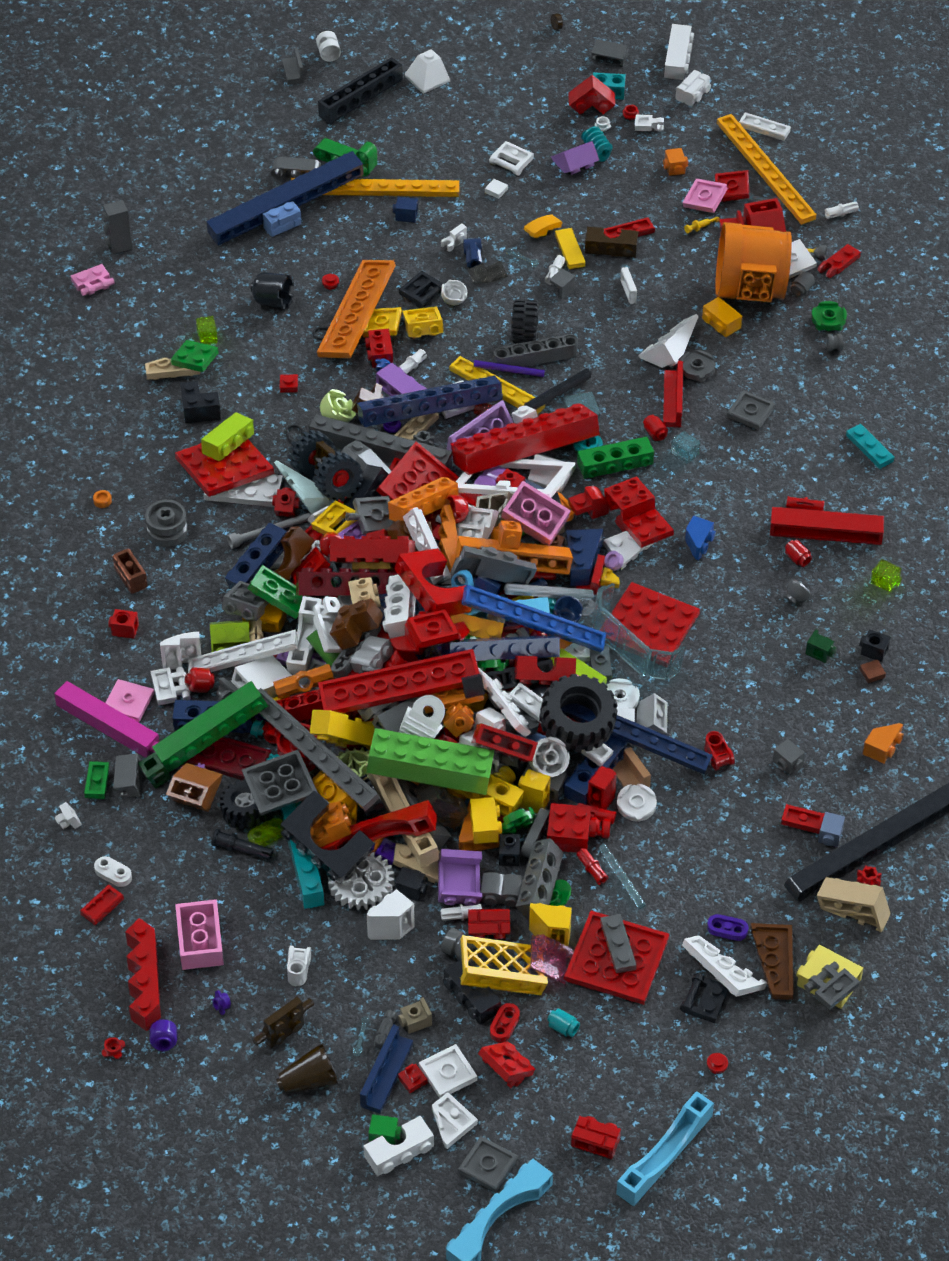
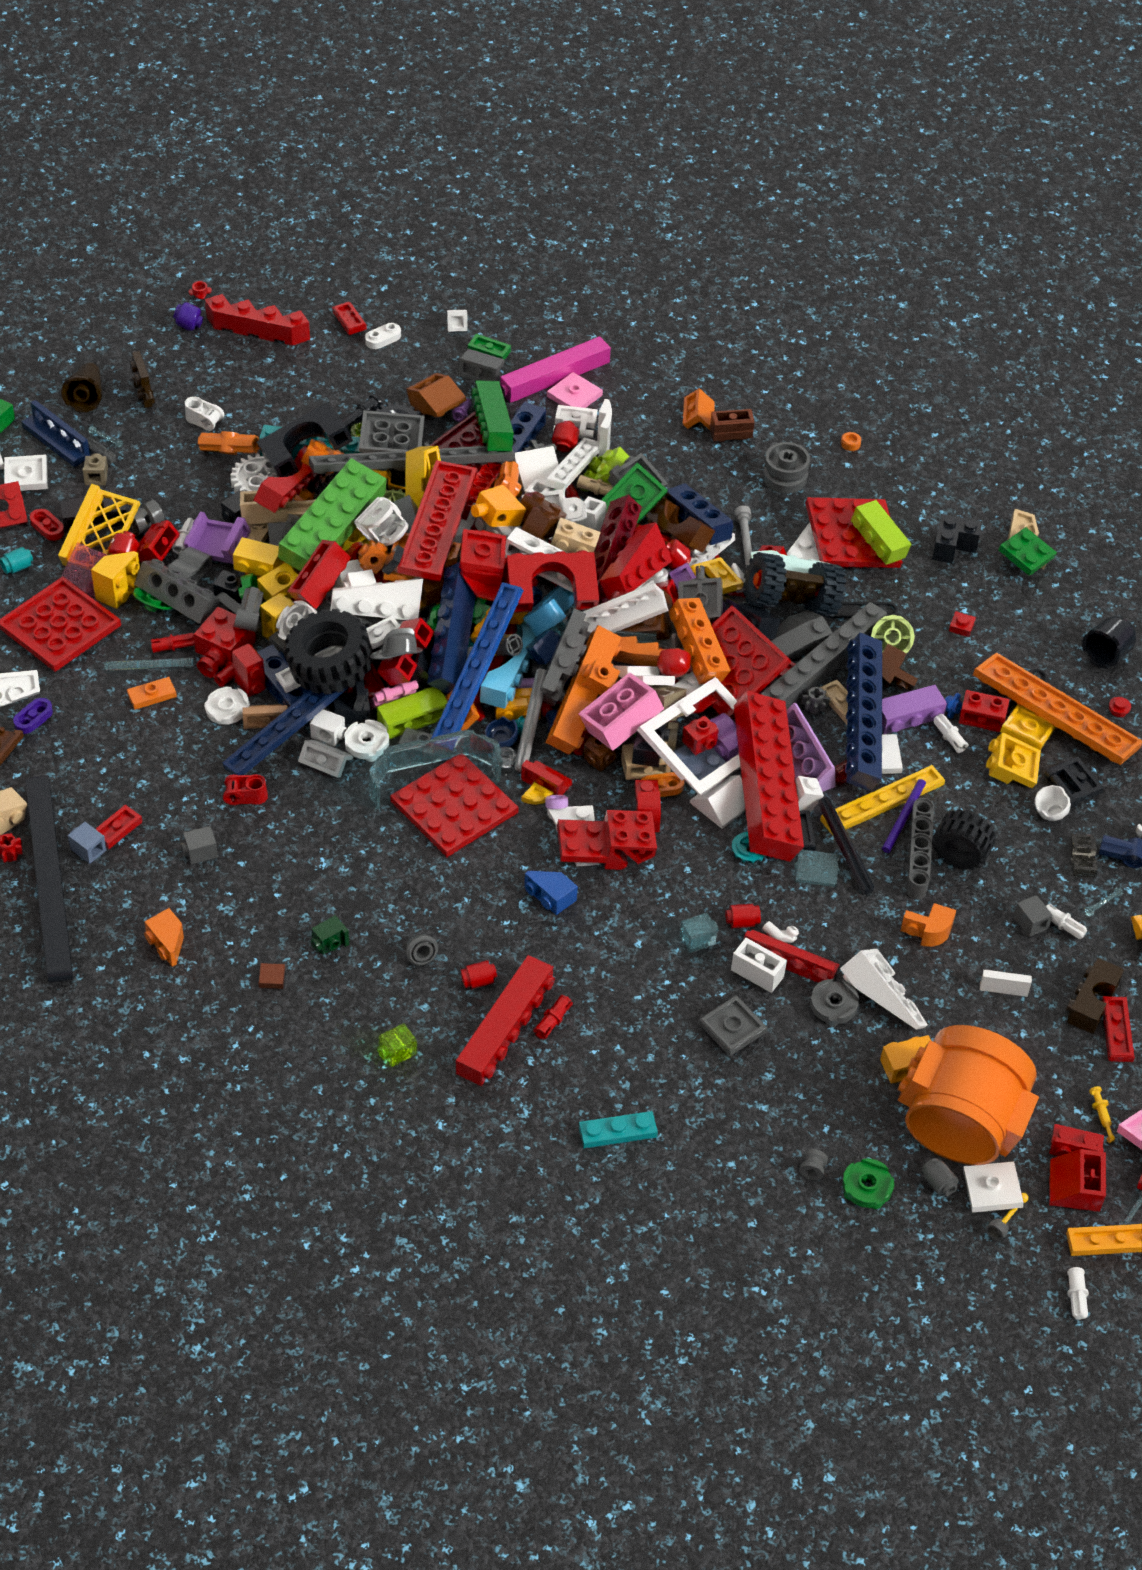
camera: 110 degrees right, 0 degrees up
(106, 607) = (697, 409): none -> orange panel
(124, 623) = (668, 409): red brick -> none
(155, 770) = (470, 377): dark green brick -> none
(199, 934) = (271, 358): bright pink brick -> none
(206, 330) = (1070, 576): clear neon green brick -> none
(221, 1002) = (197, 358): dark purple plate -> none
(333, 920) = (228, 443): none -> orange piece
(364, 646) = (498, 507): none -> light orange torso
(391, 917) = (202, 477): white slope -> none
(412, 1078) = (39, 449): red tile -> none
(516, 931) = (123, 543): none -> red head
(555, 798) = (248, 613): none -> dark grey piece
(560, 660) = (397, 643): none -> dark grey piece
(570, 248) = (1088, 951): yellow tile -> none
(584, 548) = (581, 772): dark blue wedge -> none
(603, 329) = (932, 929): none -> orange brick
(615, 457) = (712, 860): green brick -> none
(618, 943) = (67, 621): dark grey plate -> none
(652, 859) = (151, 693): none -> orange plate
(656, 405) = (787, 936): none -> white arm
(697, 404) = (758, 965): none -> white brick
(839, 261) = (975, 1247): red hinge -> none
(875, 645) = (299, 996): black brick -> none

